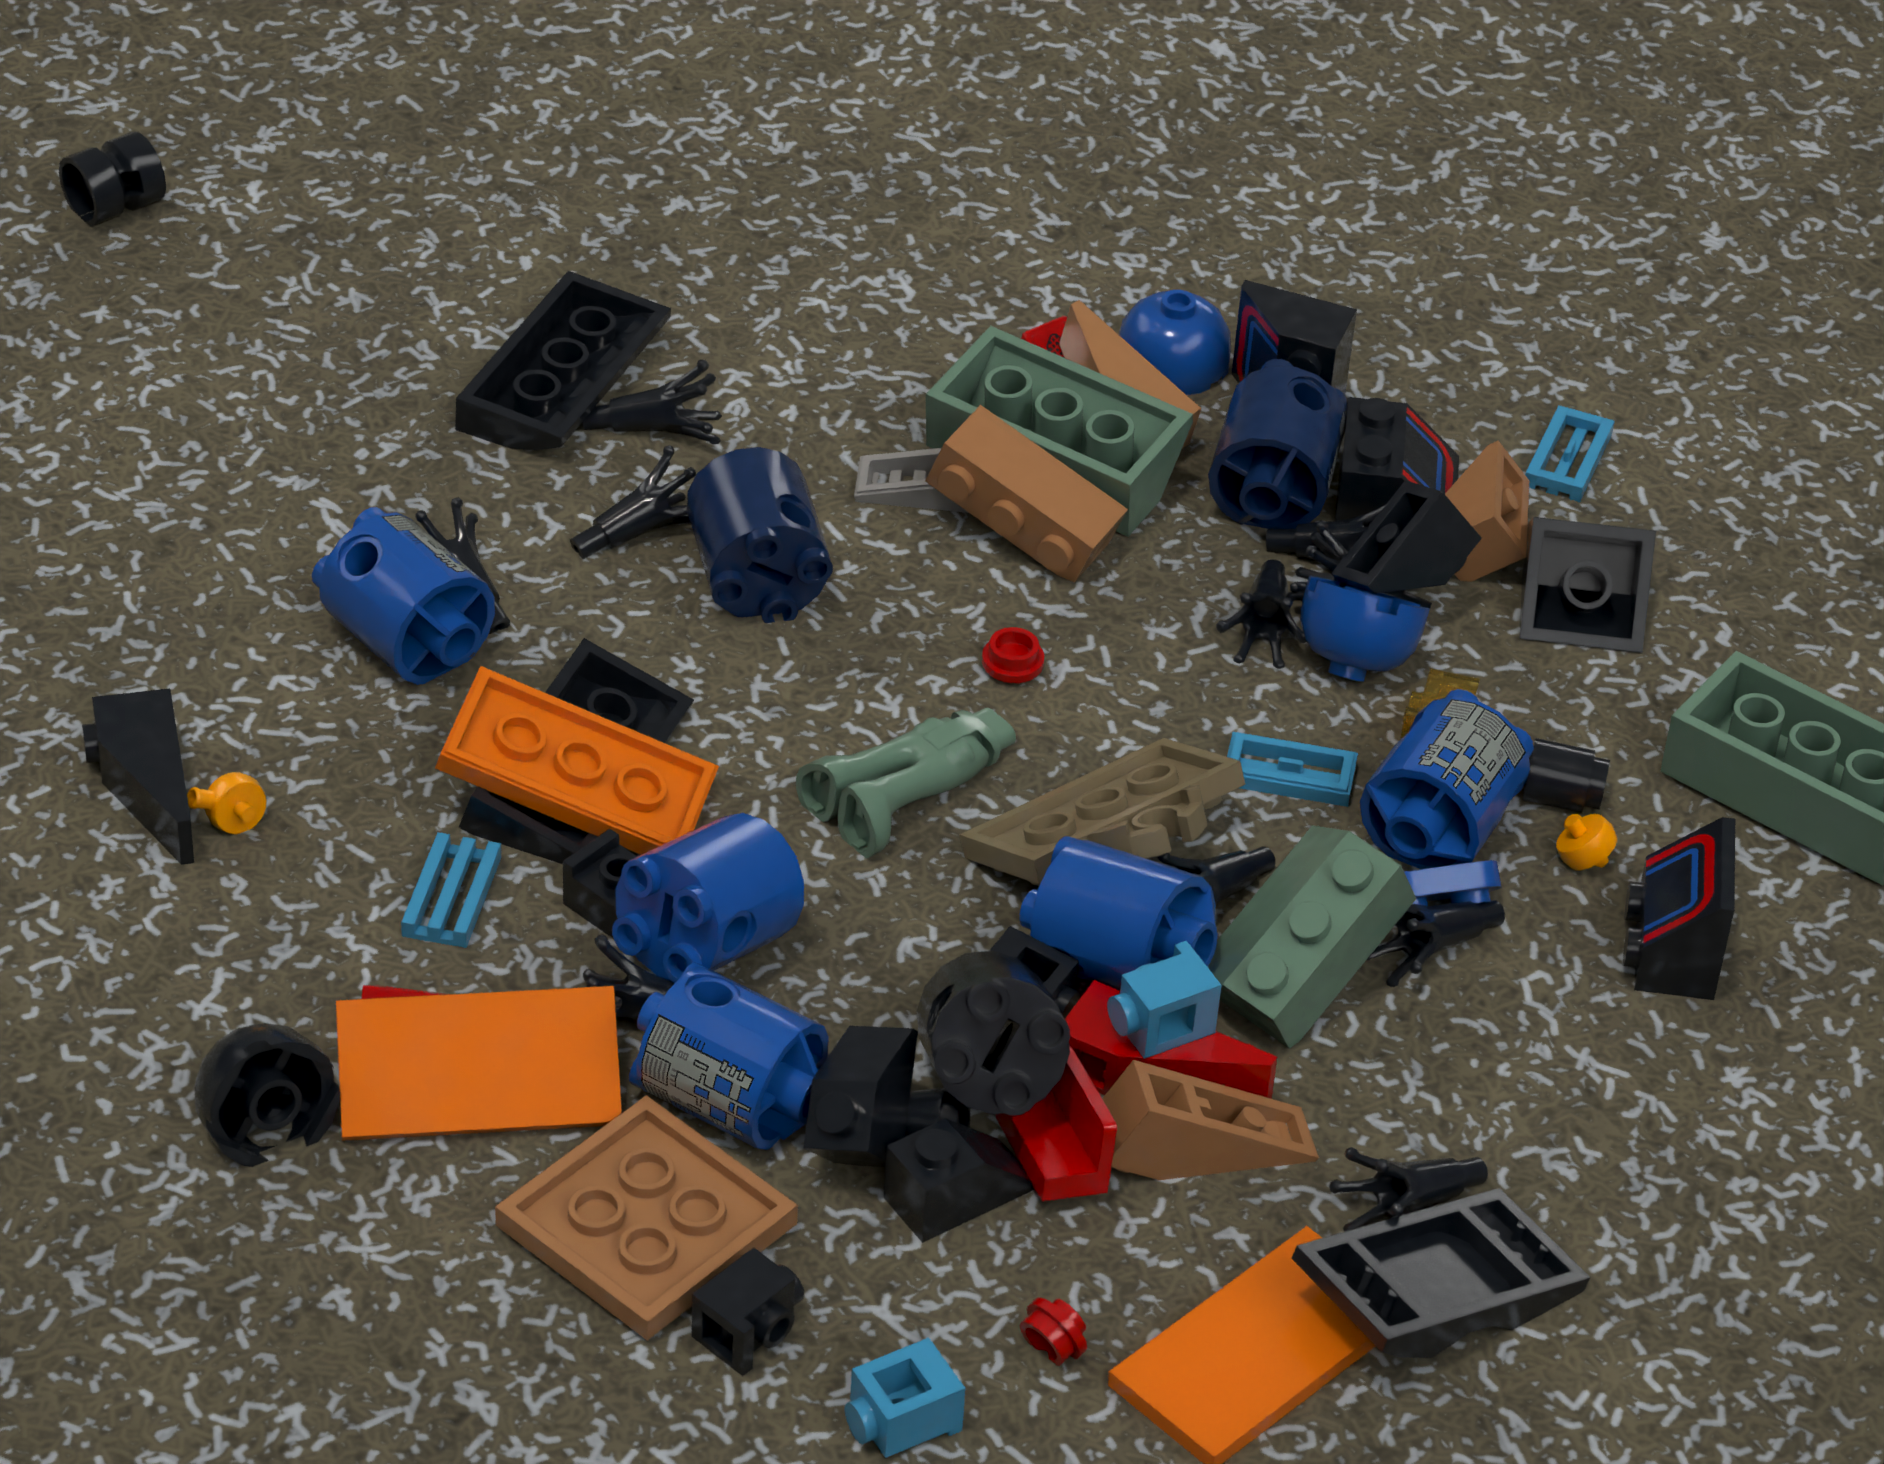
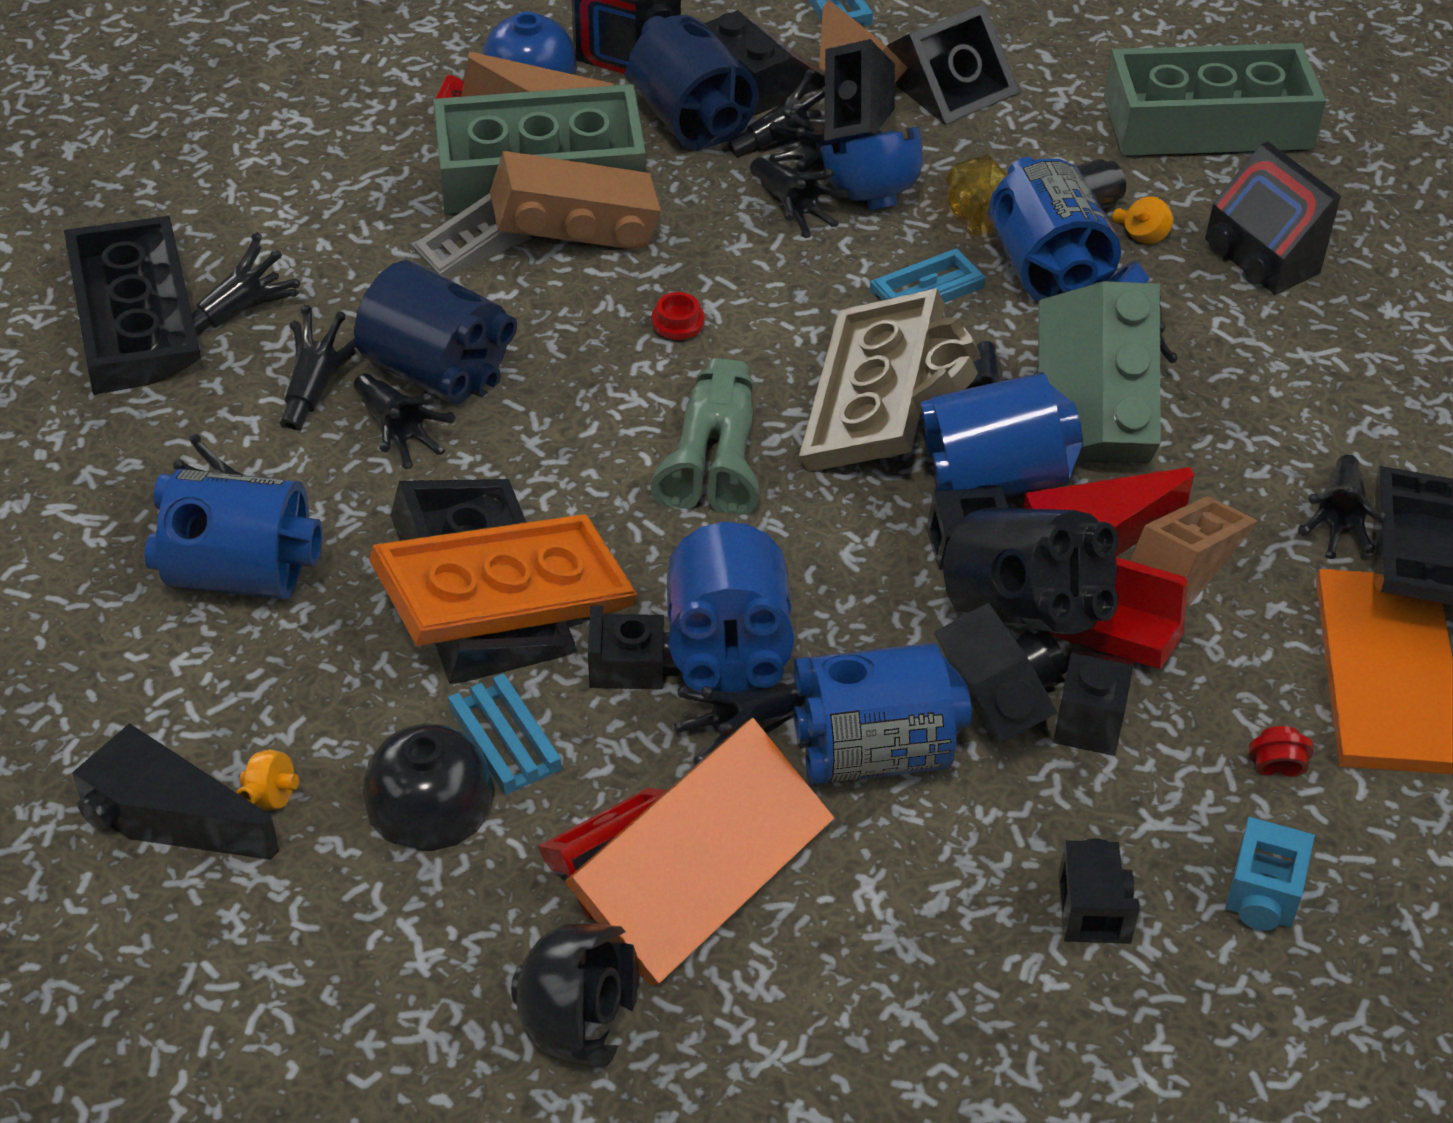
camera: 40 degrees left, 5 degrees up
(342, 885) = (427, 787): none -> black cylinder
(645, 1215) = (941, 877): medium nougat plate -> none
(662, 593) = (399, 415): none -> black piece
(1166, 1003) = (1107, 470): dark azure brick -> none

